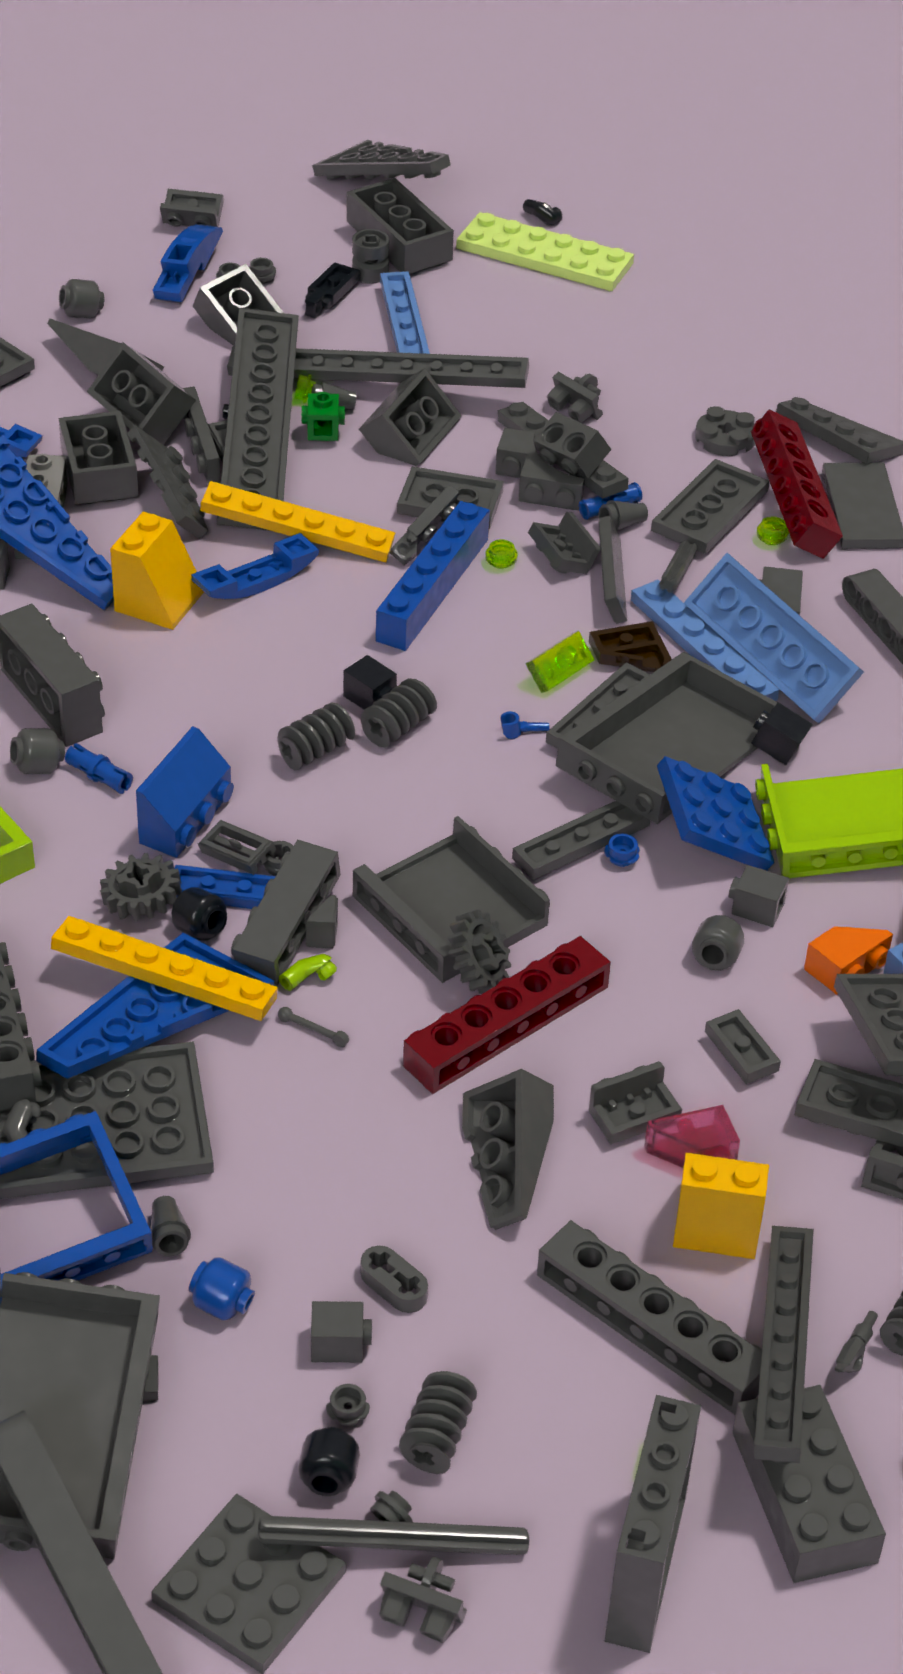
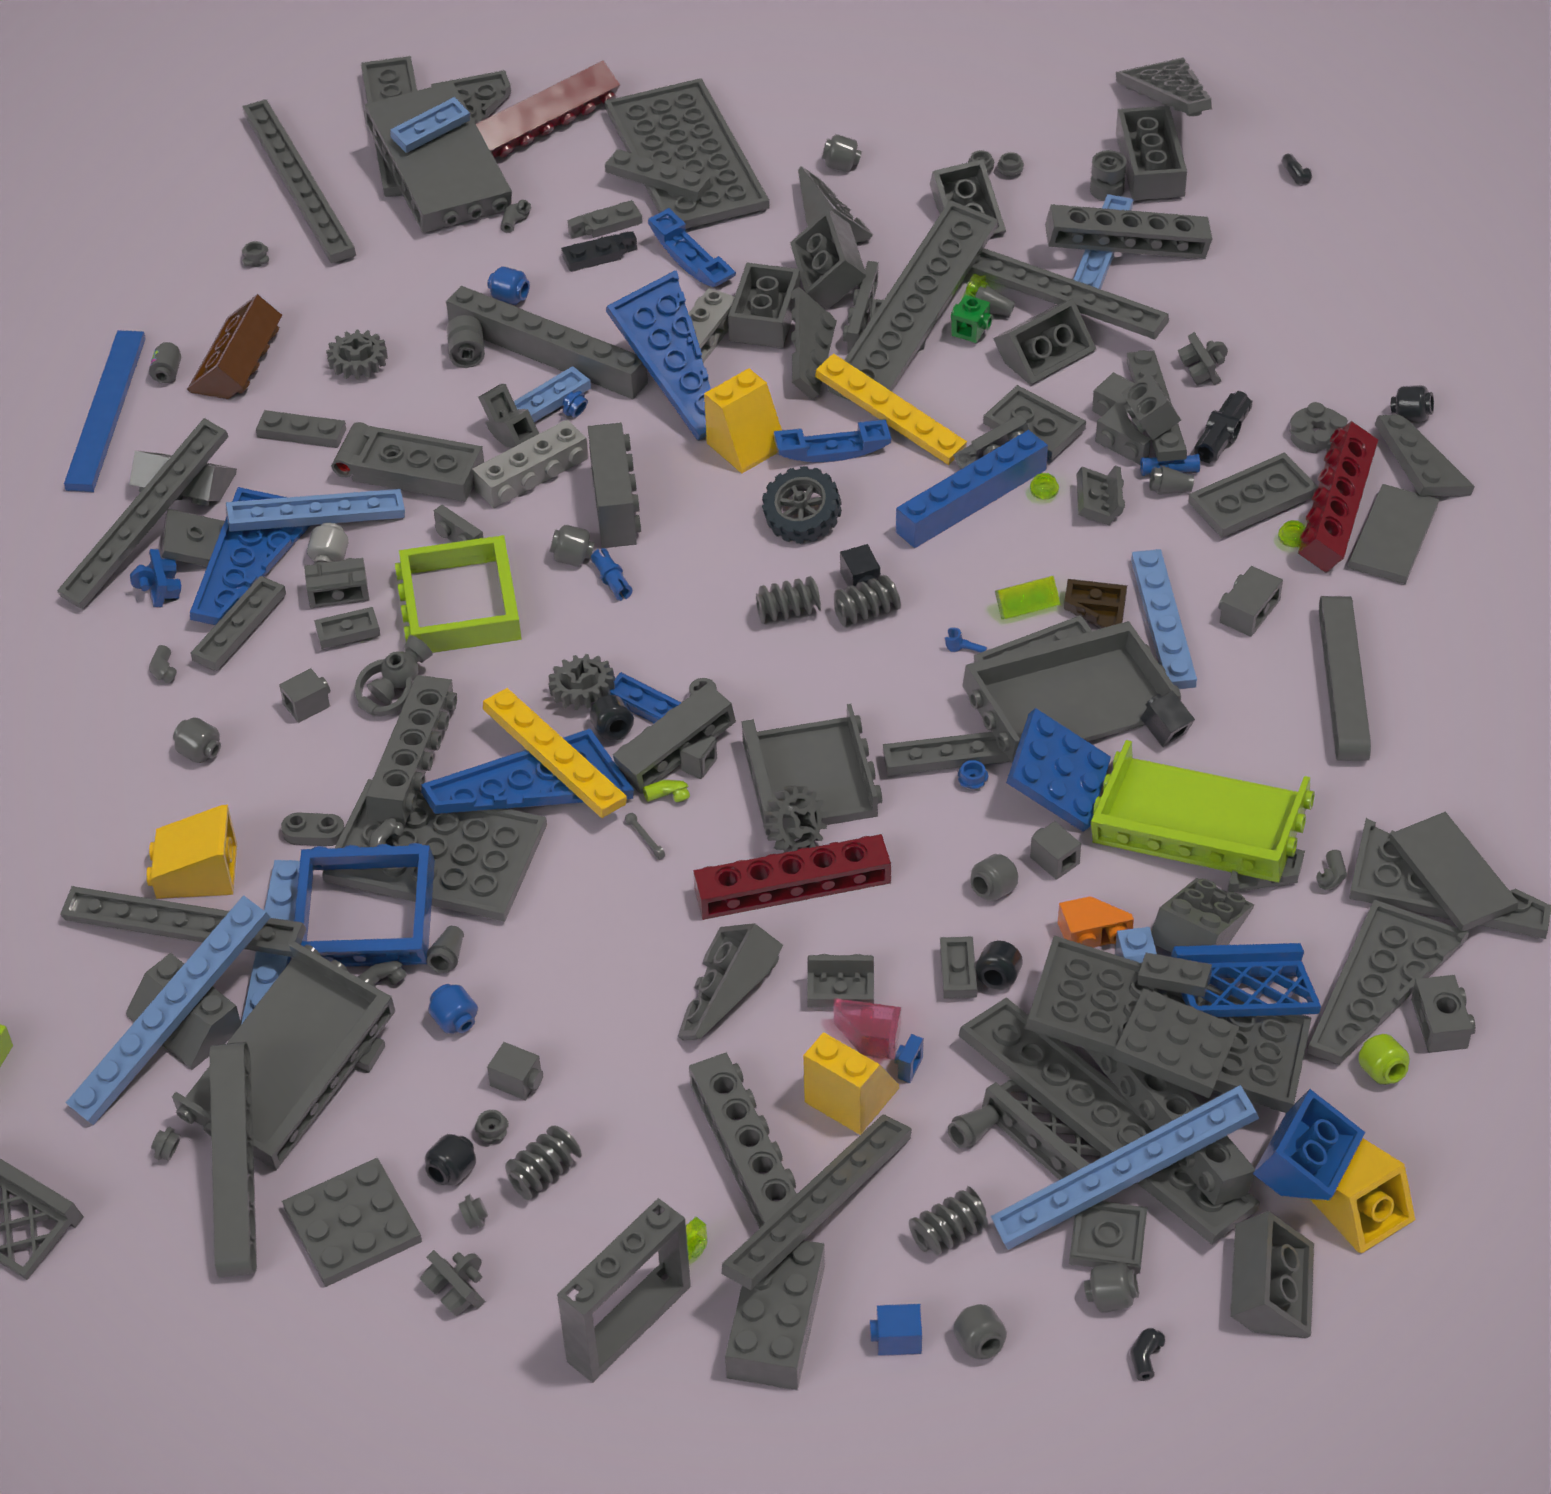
camera: 30 degrees right, 5 degrees up
(114, 1272) = (381, 970): none -> dark grey arm
(182, 794) = (653, 616): blue slope -> none
(183, 258) = (948, 134): blue slope -> none
(191, 208) = (986, 89): dark grey bracket -> none
(232, 851) = (680, 684): dark grey tile -> none
(259, 617) = (805, 526): none -> black wheel
(330, 288) = (1059, 193): black hinge -> none
(393, 1535) = (461, 1229): dark grey axle -> none
(398, 1275) = (576, 1050): dark grey beam -> none
(428, 298) = (1128, 231): none -> dark grey brick
(545, 251) = (1274, 209): yellowish green plate -> none
(612, 570) = (1126, 528): dark grey tile -> none
(639, 451) = (1223, 426): none -> black piece
(678, 566) = (1183, 542): dark grey axle -> none
(759, 1149) = (909, 1058): none -> blue plate
(773, 638) = (1215, 632): medium blue plate -> none
(785, 1028) = (999, 965): none -> black head
(802, 383) = (1413, 403): none -> black head
(853, 1351) = (878, 1233): dark grey hand -> none
(869, 1206) = (969, 1127): none -> dark grey cone

